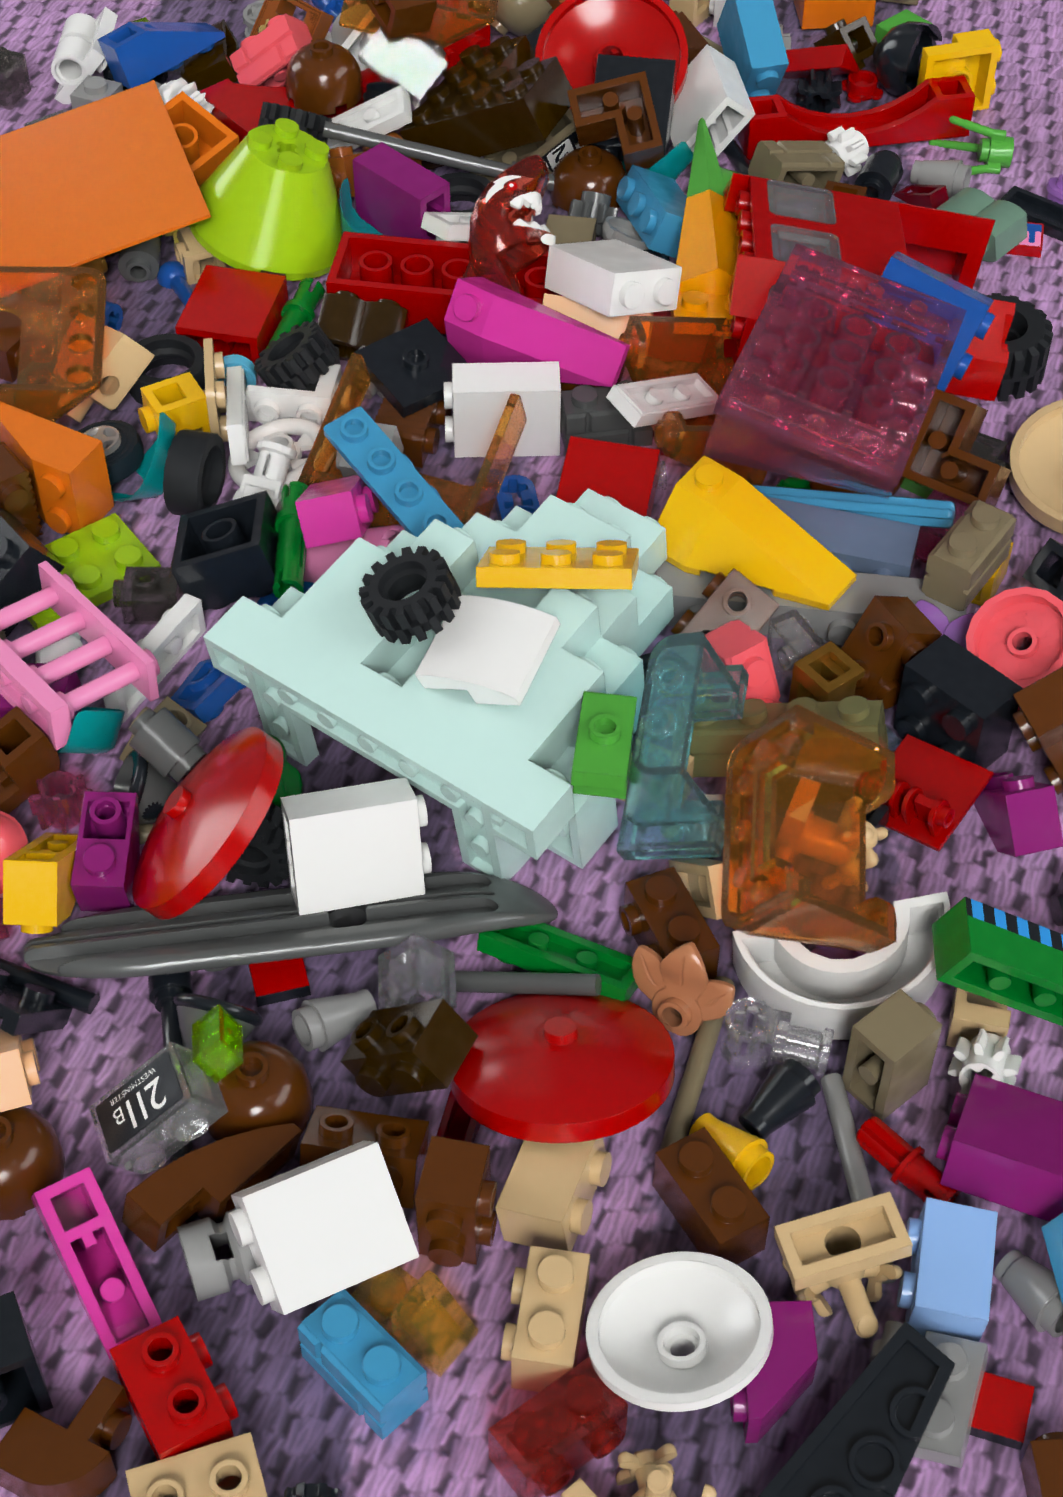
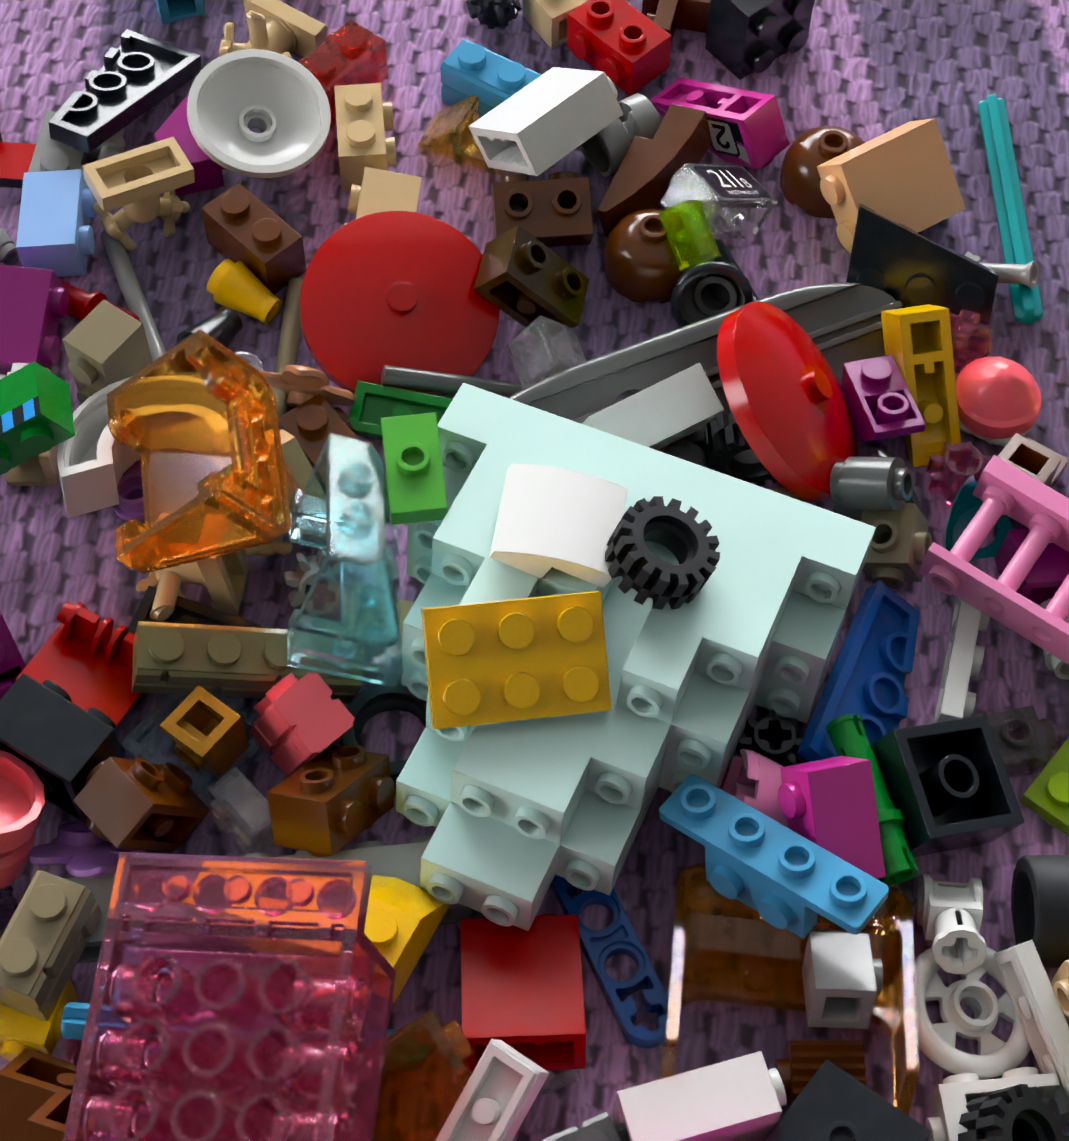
camera: 165 degrees right, 10 degrees up
(331, 1018) = (615, 328): light grey cone -> none
(455, 1202) = (455, 176): reddish brown brick -> none

